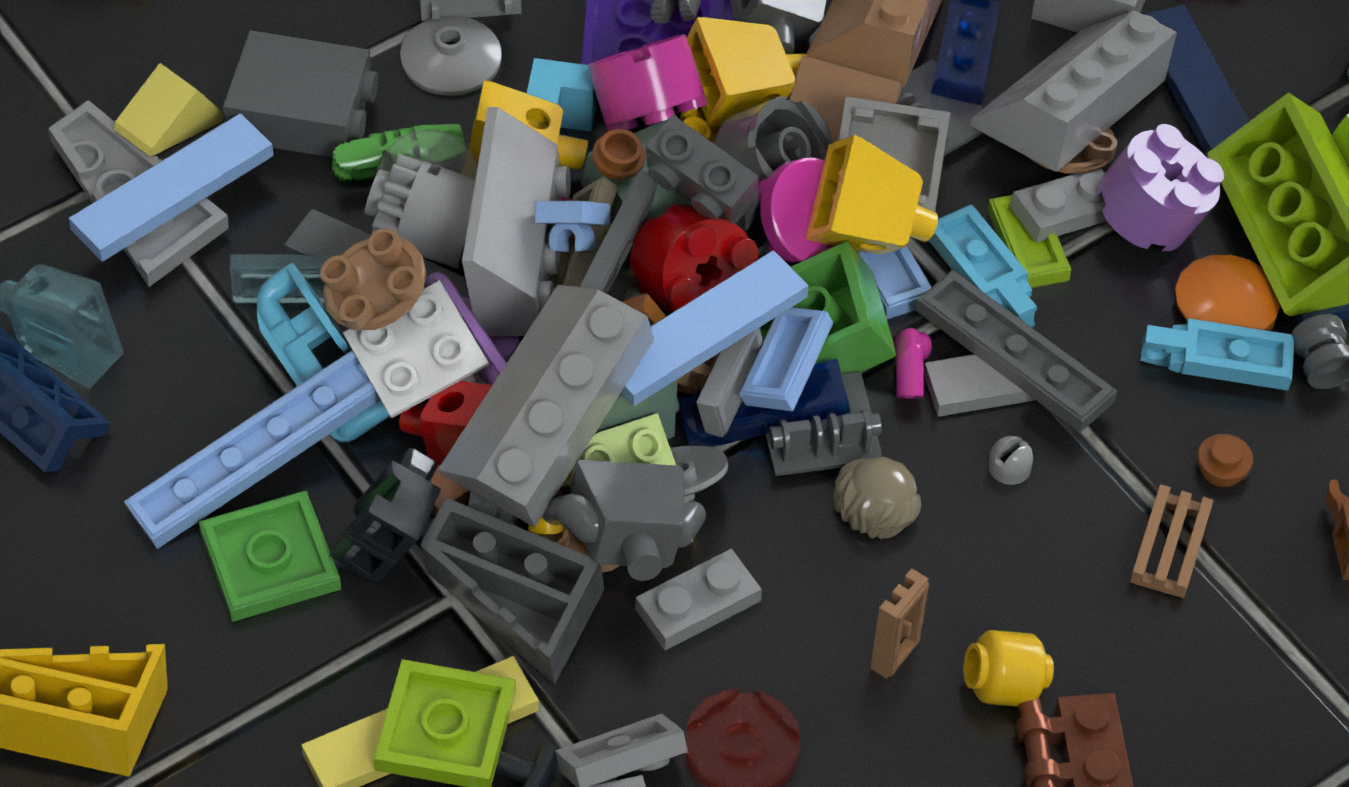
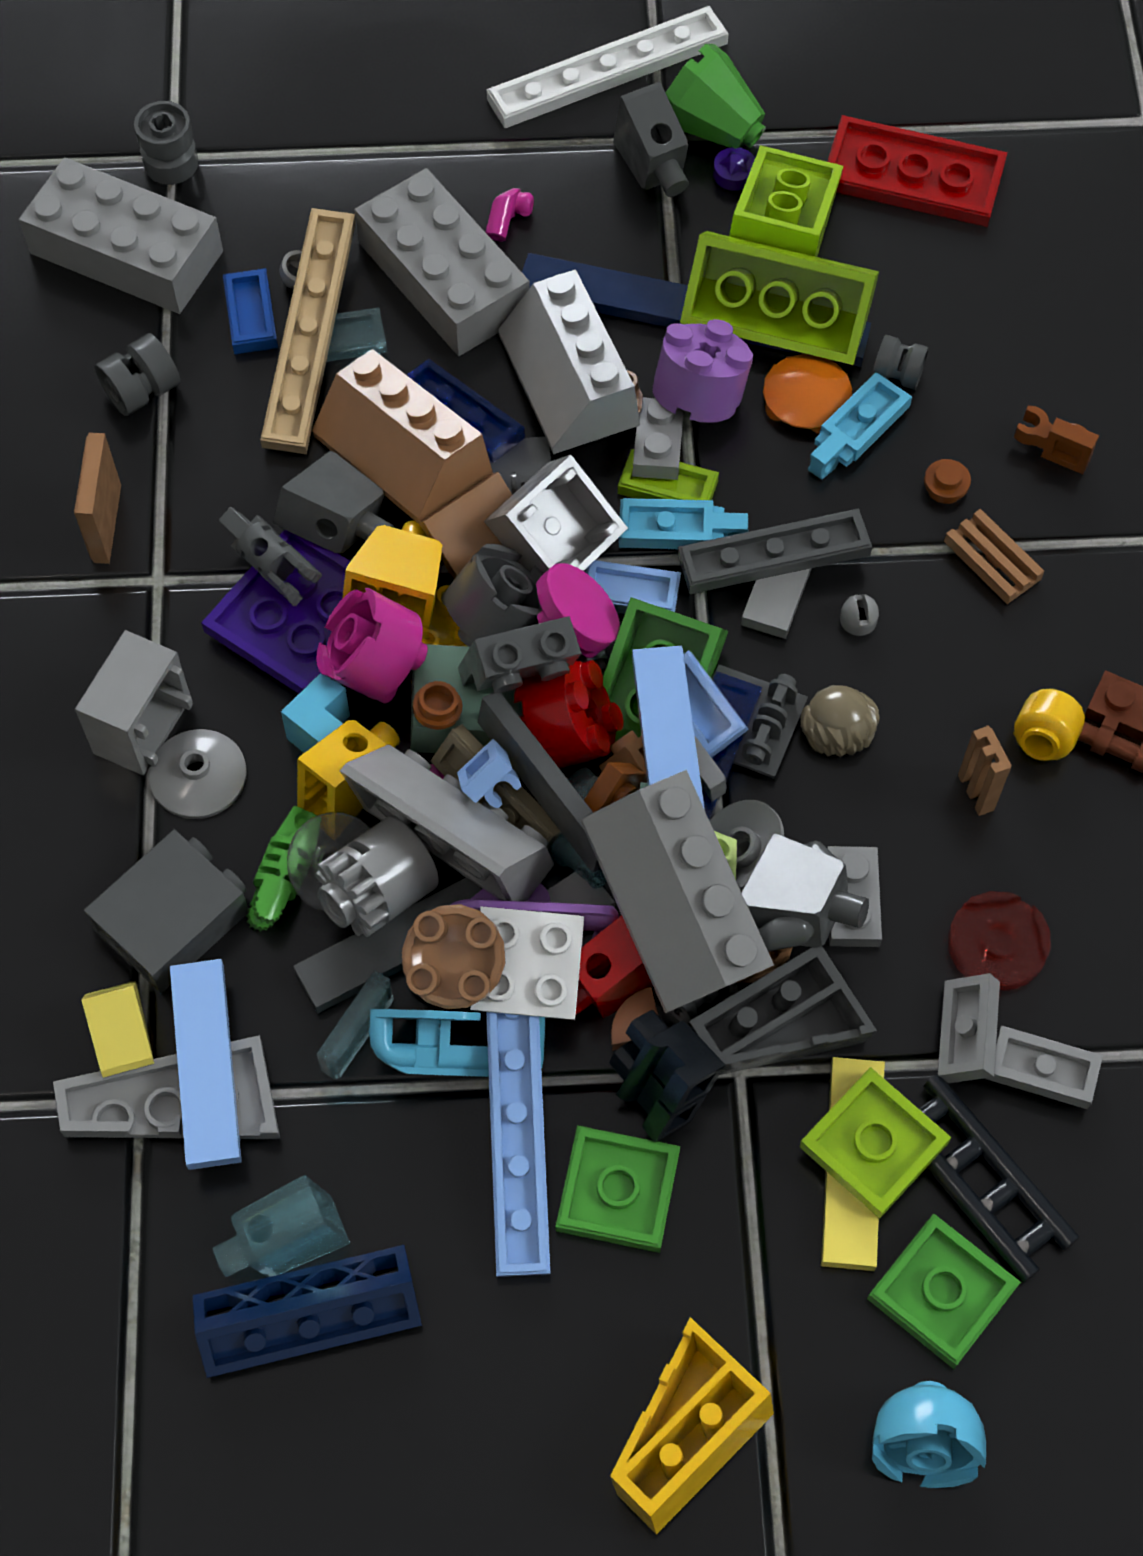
camera: 55 degrees left, 10 degrees up
(868, 200) = (604, 562): yellow torso -> none
(911, 349) = (739, 627): dark pink arm -> none

